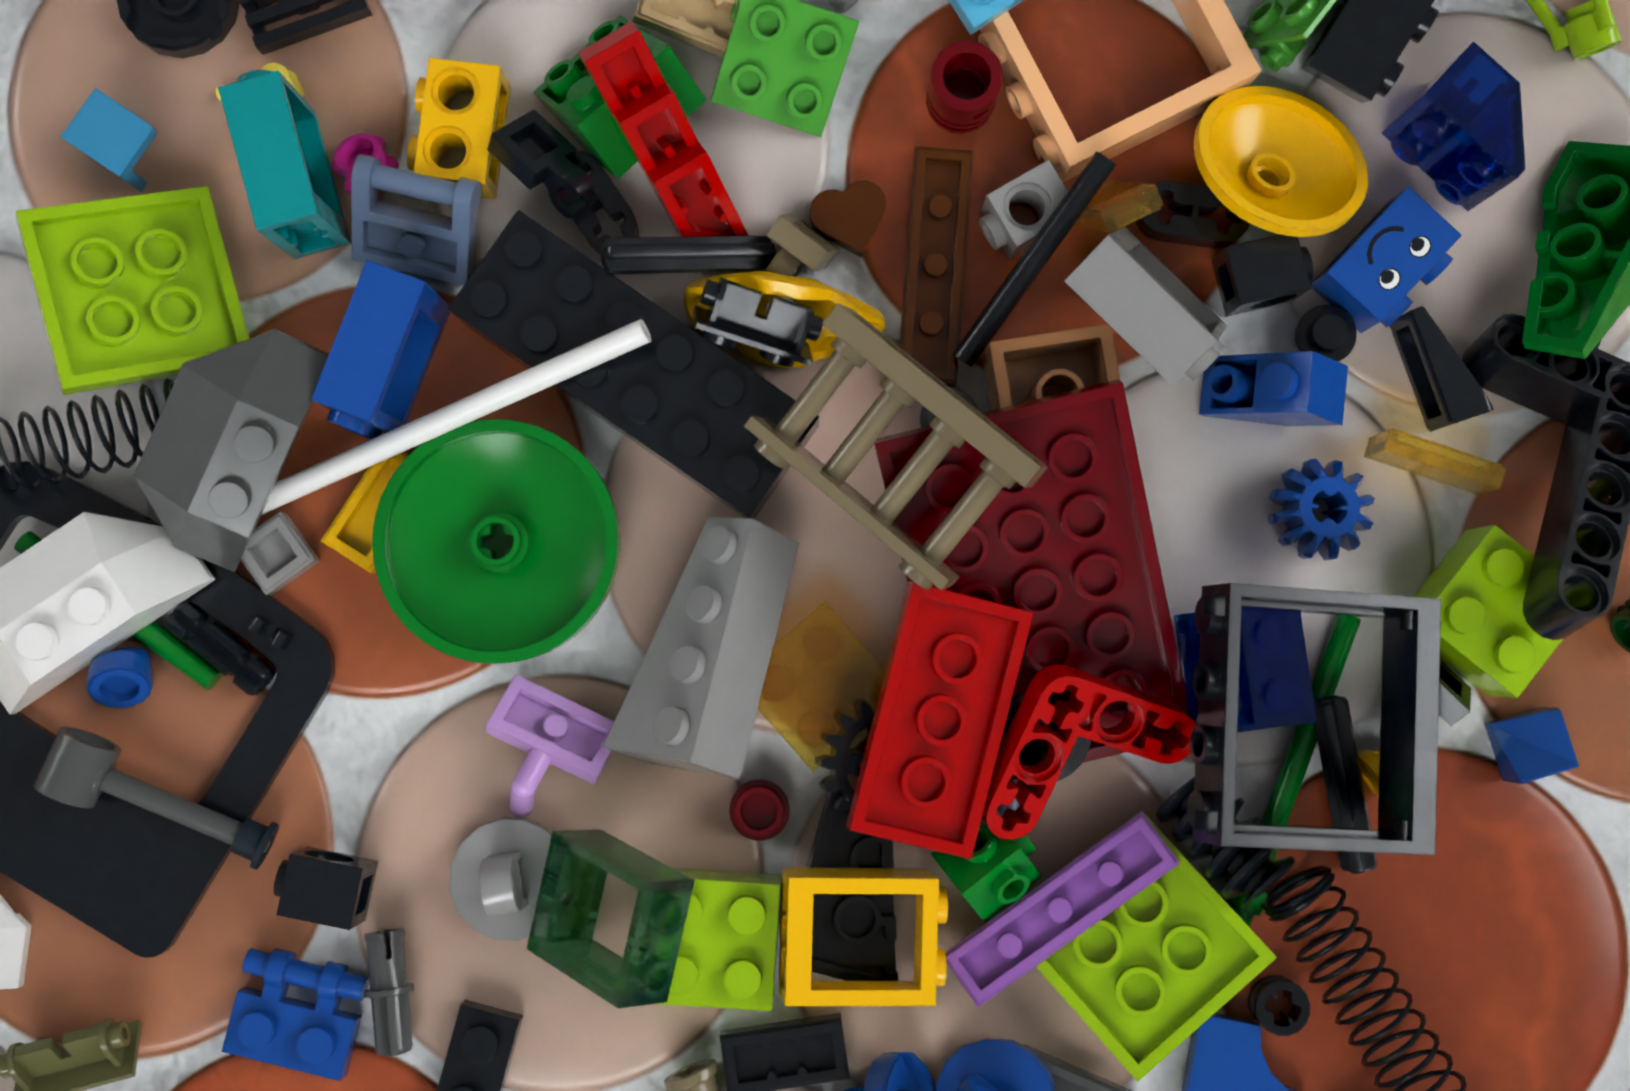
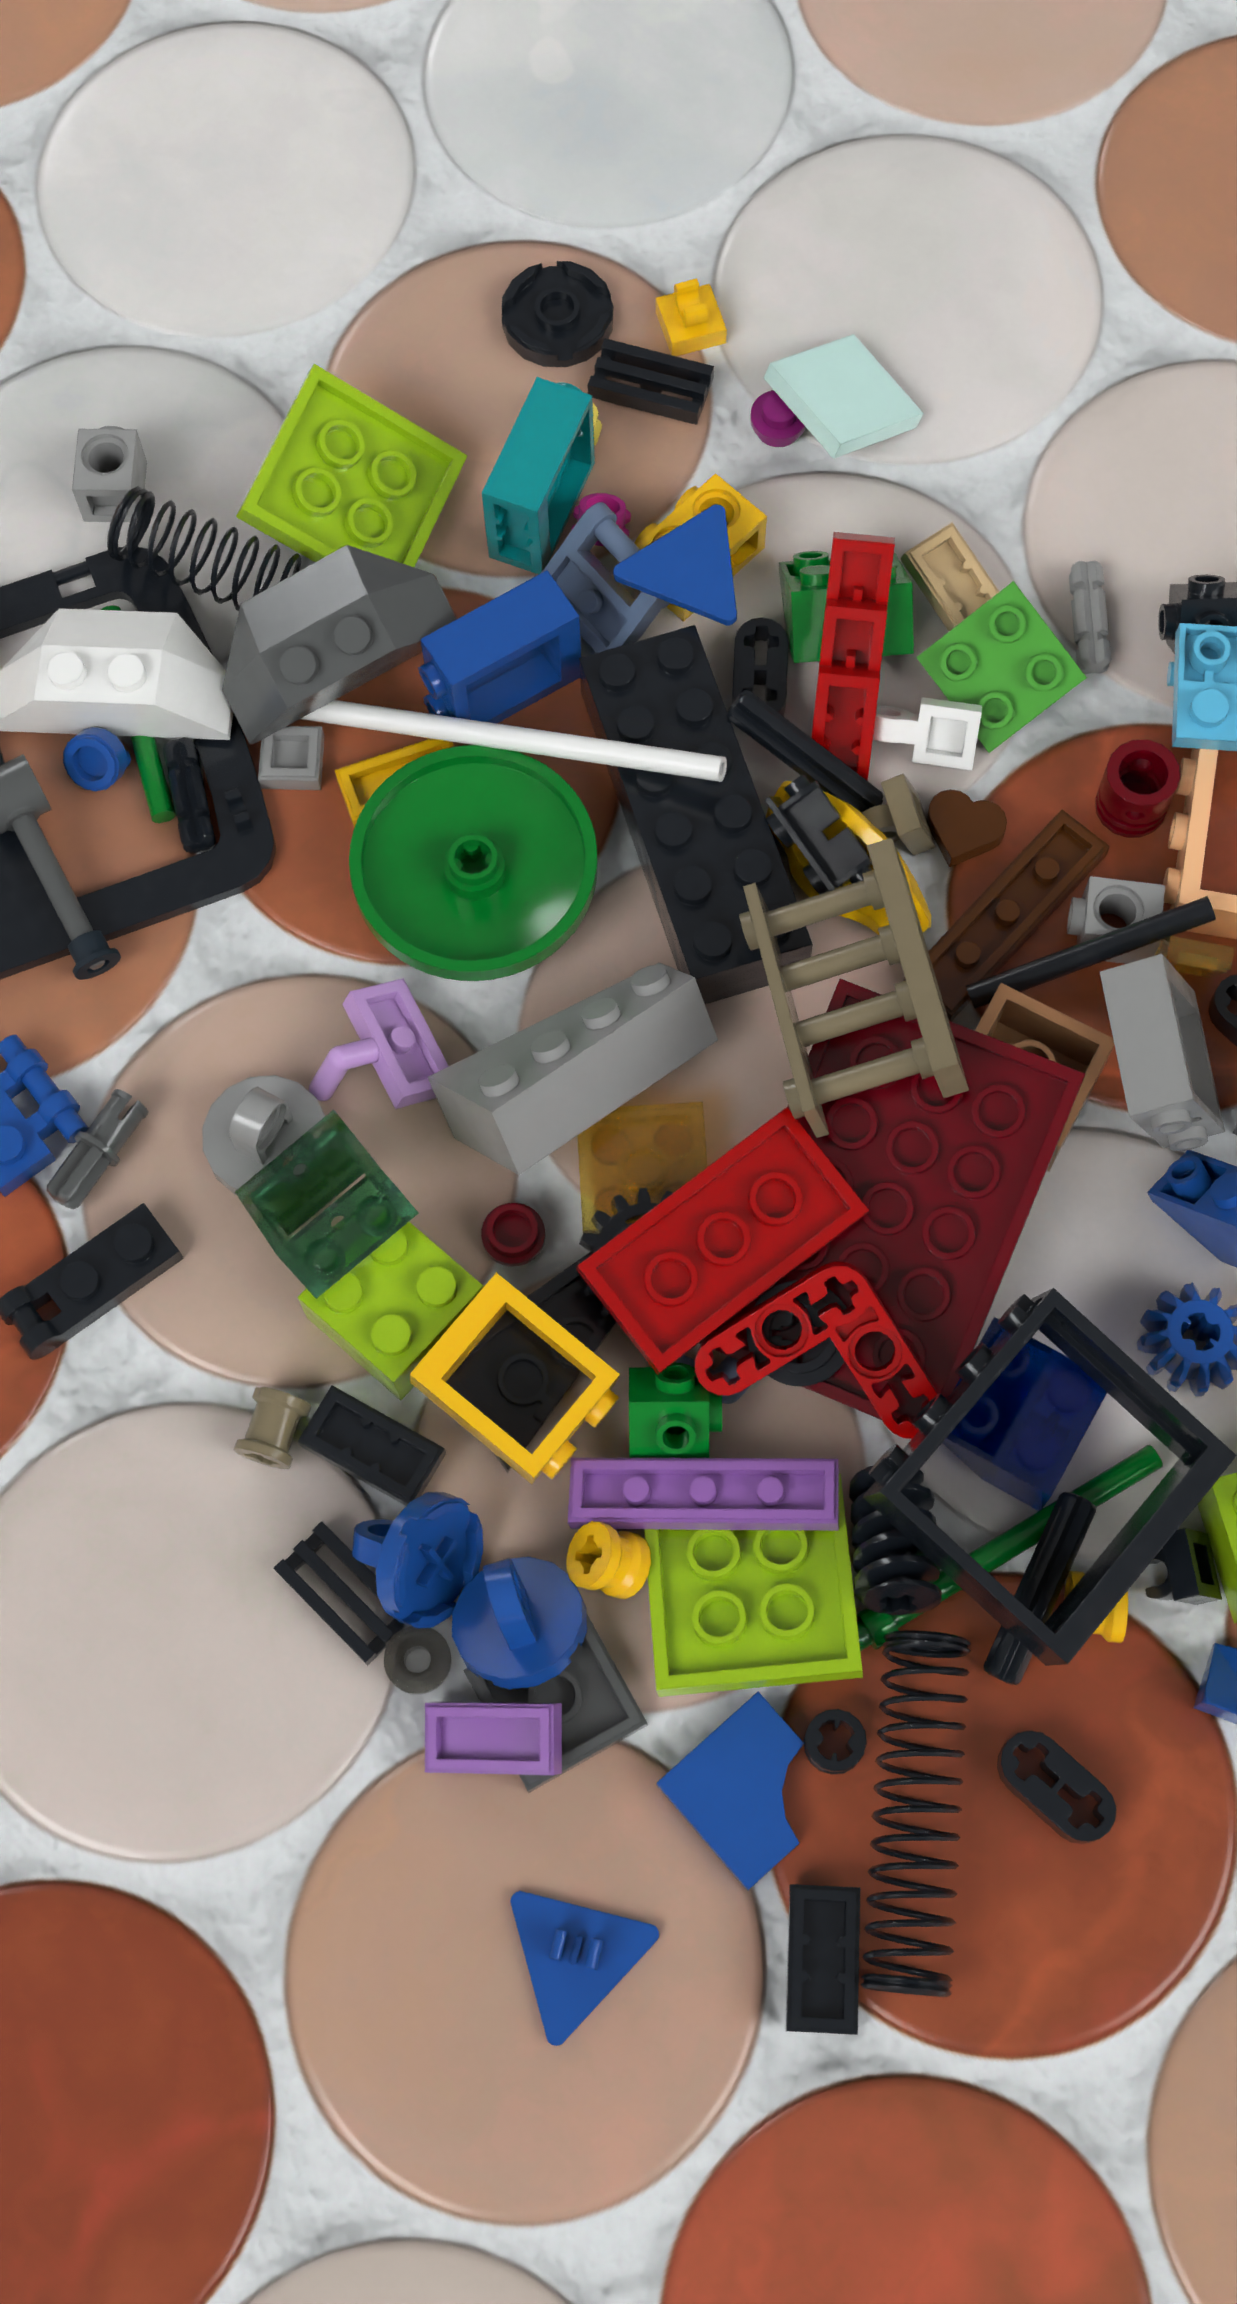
camera: 45 degrees right, 15 degrees down
(111, 136) = (424, 370): dark azure panel -> none
(325, 887) = (117, 1029): black brick -> none
(477, 166) = (688, 567): none -> blue piece
(542, 154) = (755, 612): black plate -> none
(775, 153) = (941, 733): none -> white plate
(1027, 1010) = (608, 1560): none -> yellow wheel
(1453, 929) = (1067, 1775): none -> black beam

